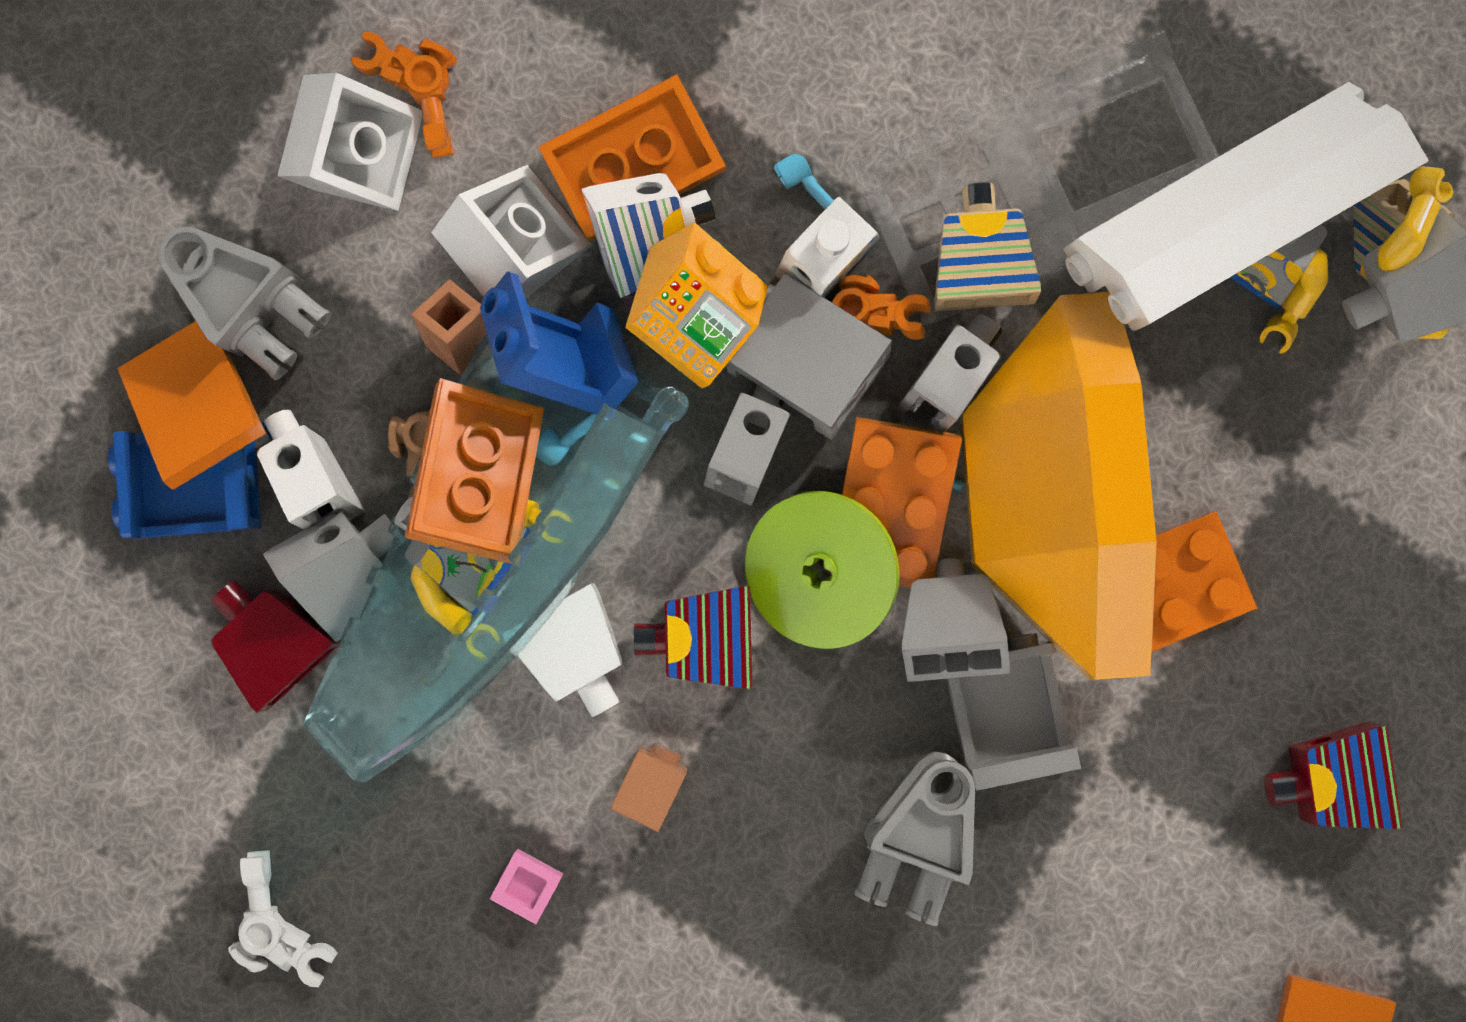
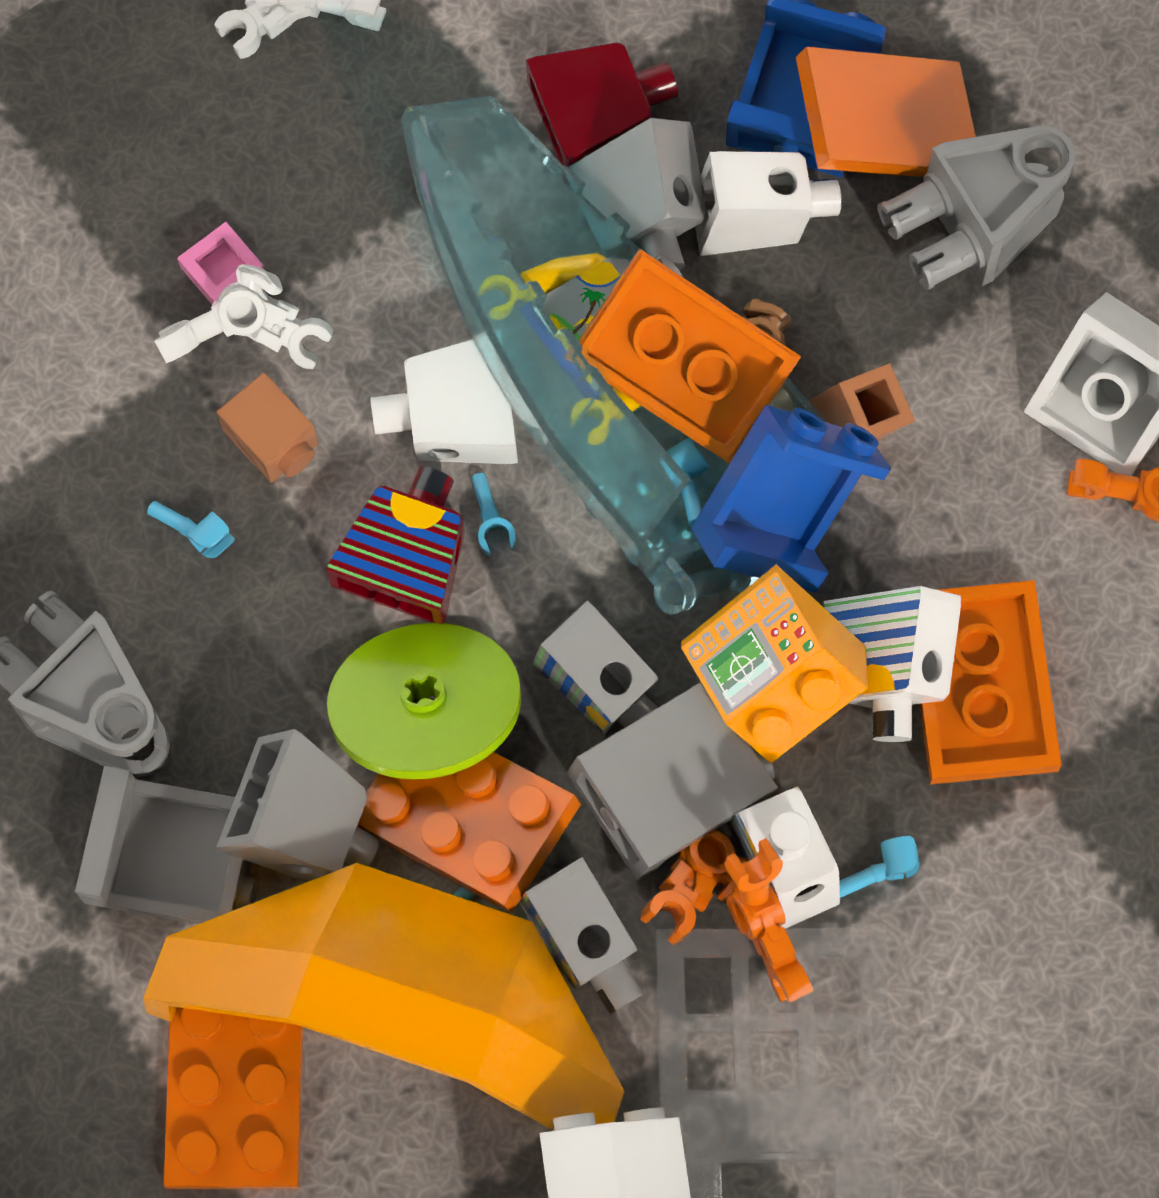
camera: 115 degrees right, 15 degrees down
(510, 228) = (945, 514): white slope -> none
(558, 843) = (249, 312): none -> white piece
(645, 587) = (489, 513): none -> medium azure hand
(753, 798) = (208, 533): none -> medium azure hand
(890, 245) = (759, 917): none -> orange piece
(984, 256) = (707, 1018): torso -> none

